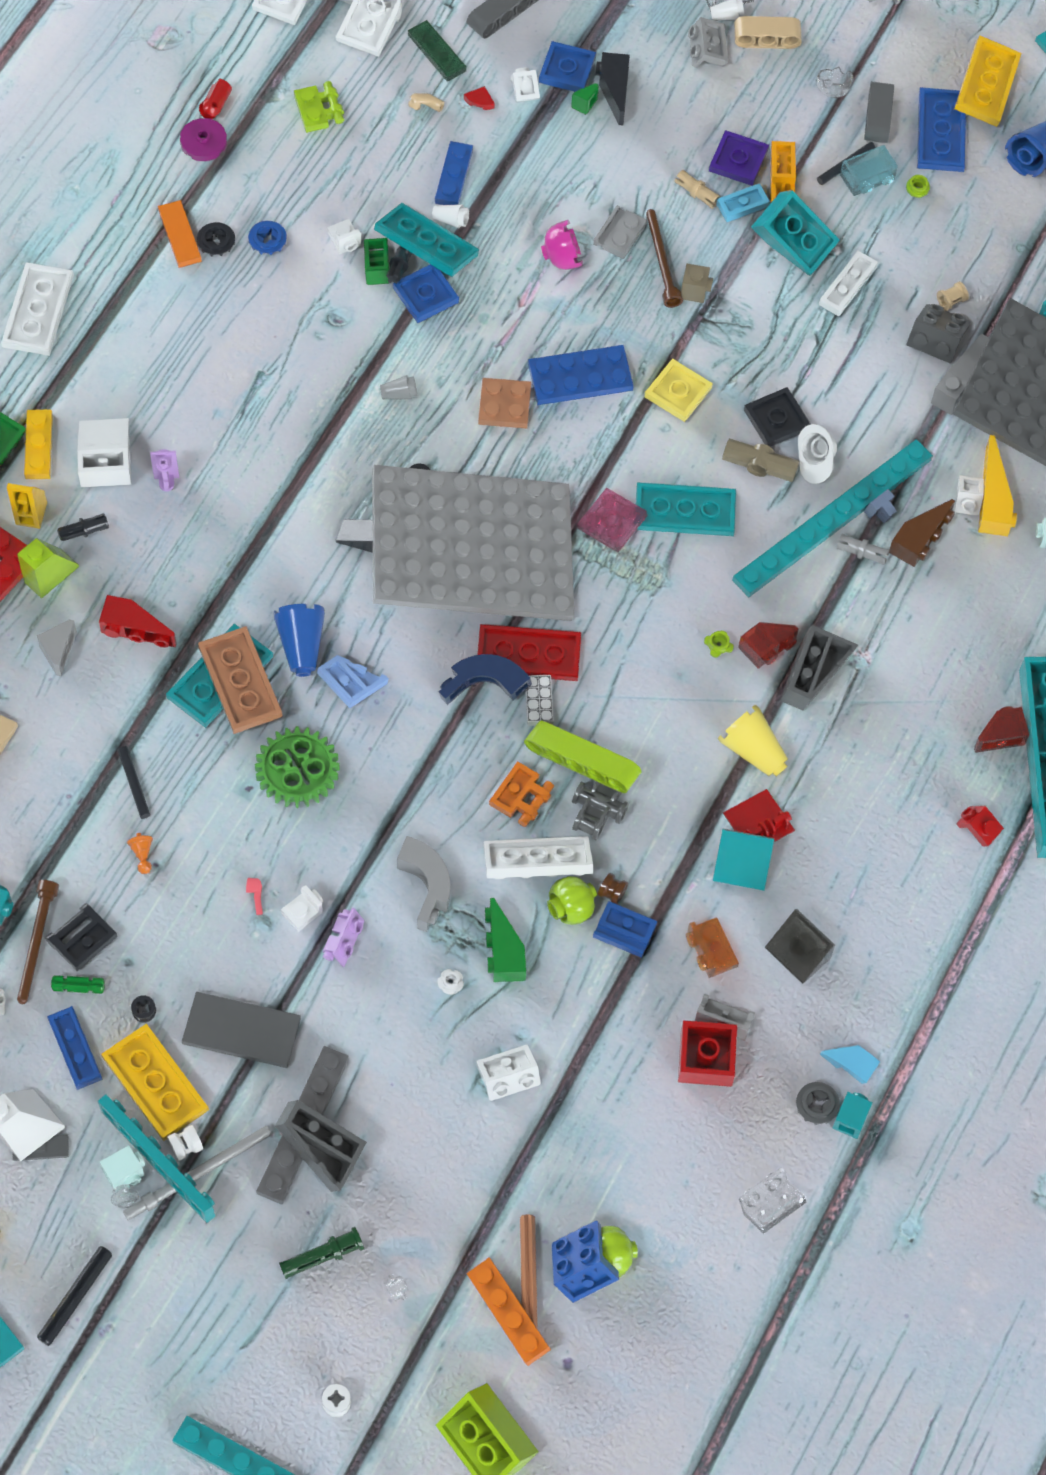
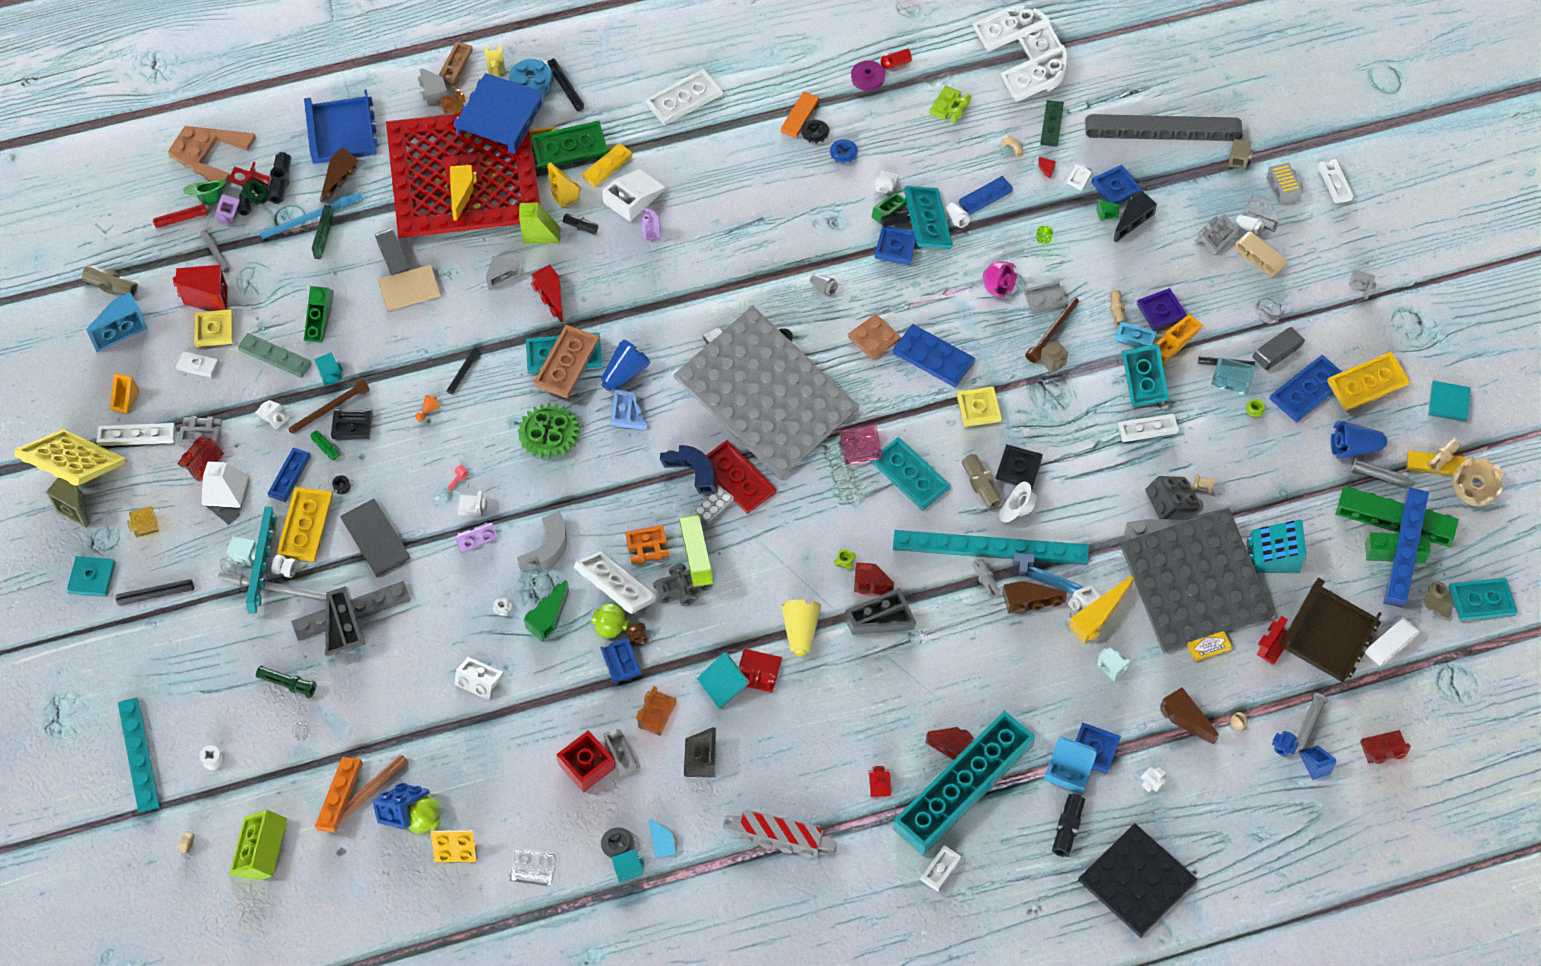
camera: 50 degrees right, 5 degrees down
(549, 175) = (1044, 239): none -> clear neon green bush
(679, 1252) = (454, 846): none -> yellow hinge
(925, 499) = (1053, 580): none -> dark azure axle
(950, 954) = (780, 834): none -> light grey hinge

